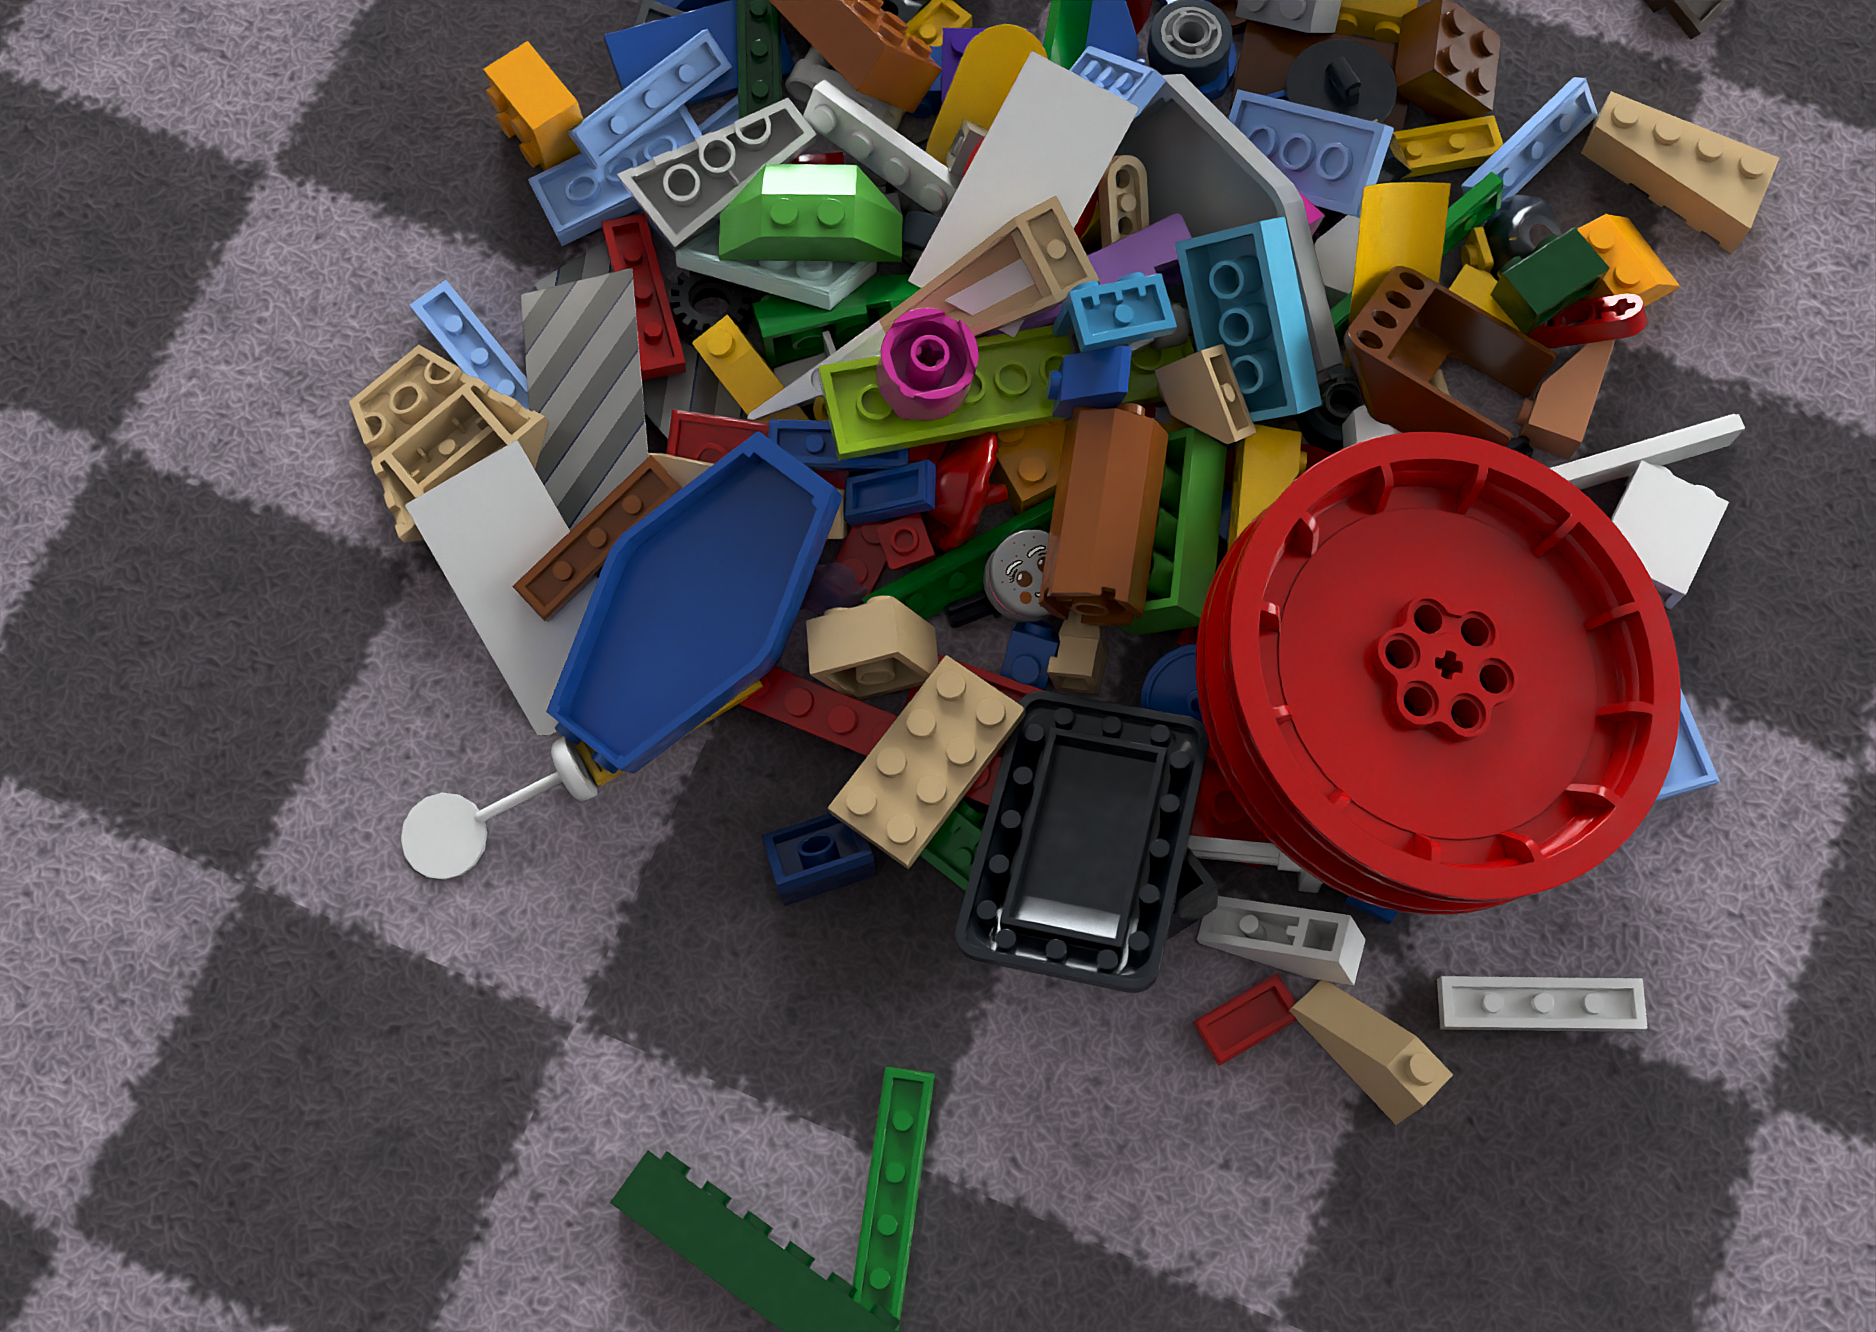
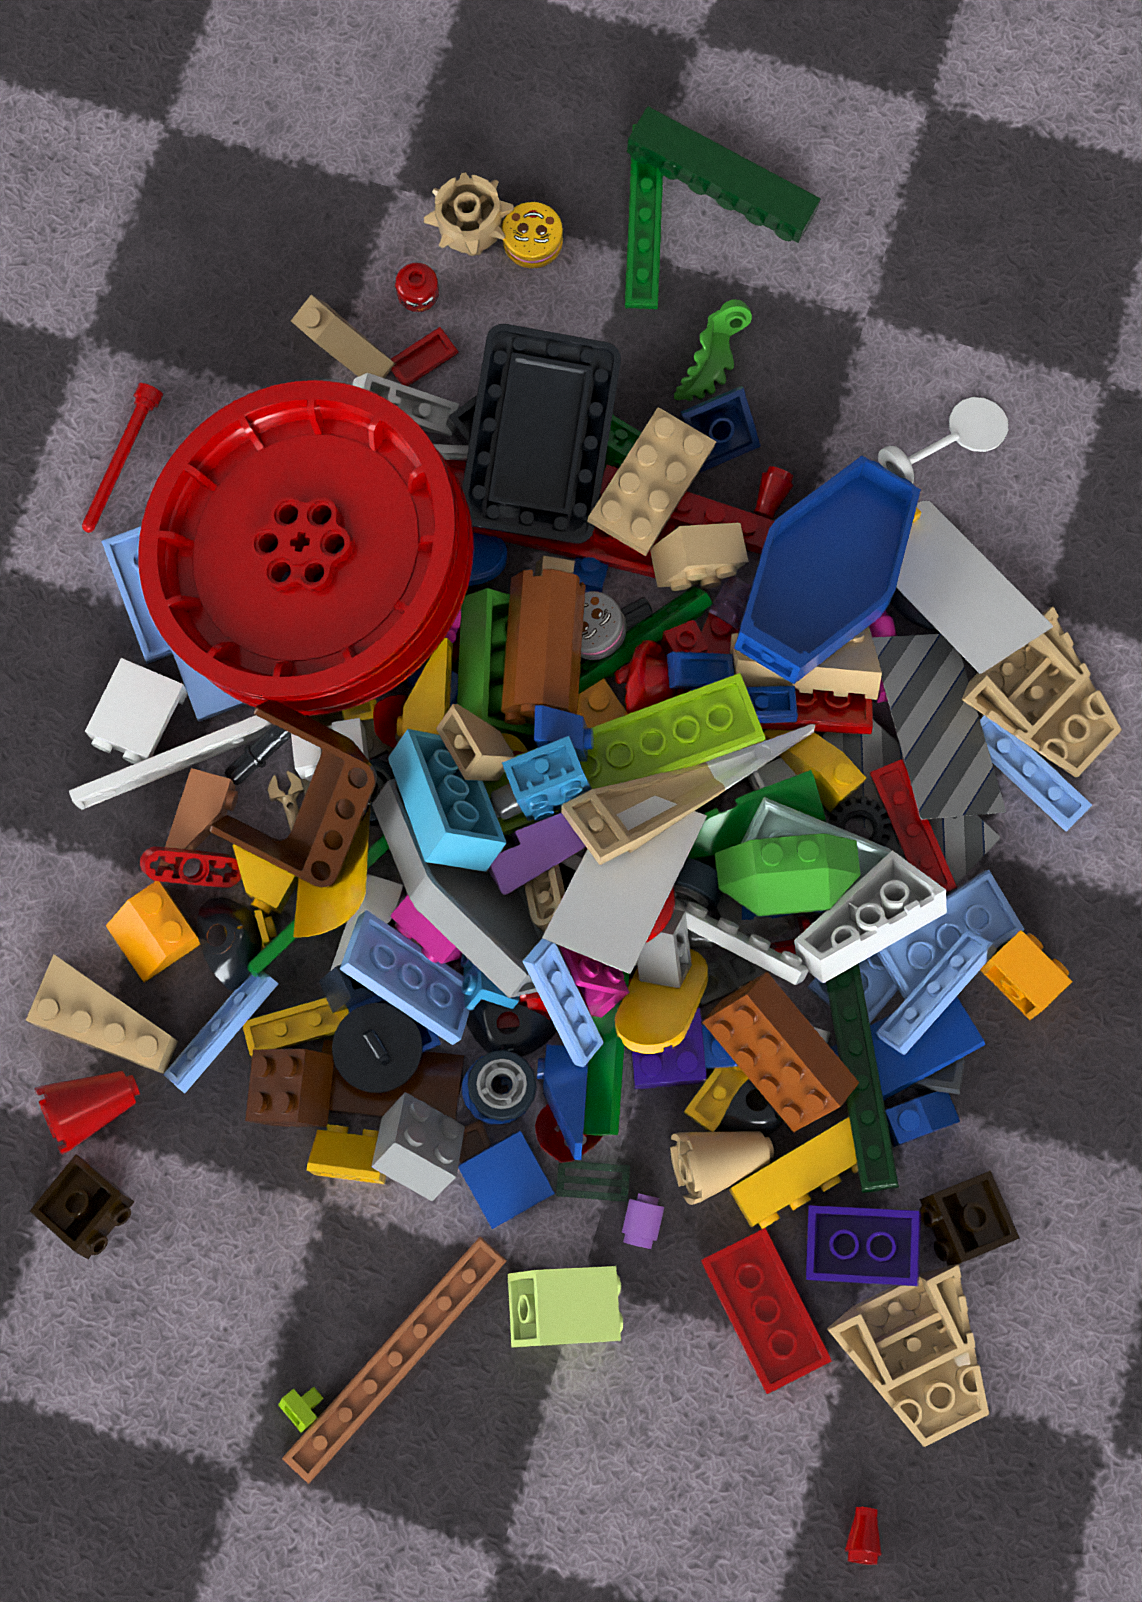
camera: 175 degrees right, 5 degrees up
(585, 548) = (906, 613): dark orange tile -> none
(753, 761) = (773, 489): none -> red cone
(806, 981) = (715, 352): none -> bright green plant
(944, 380) = (686, 750): dark pink brick -> none
(1068, 1203) = (532, 235): none -> yellow head
(1196, 1236) = (468, 214): none -> tan brick
(1253, 1125) = (417, 287): none -> red head
(1541, 1003) = (223, 381): white plate -> none
(1548, 280) = (214, 885): dark green brick -> none
(1666, 988) = (146, 399): none -> red piece
(1701, 70) = (85, 1105): none -> red cone

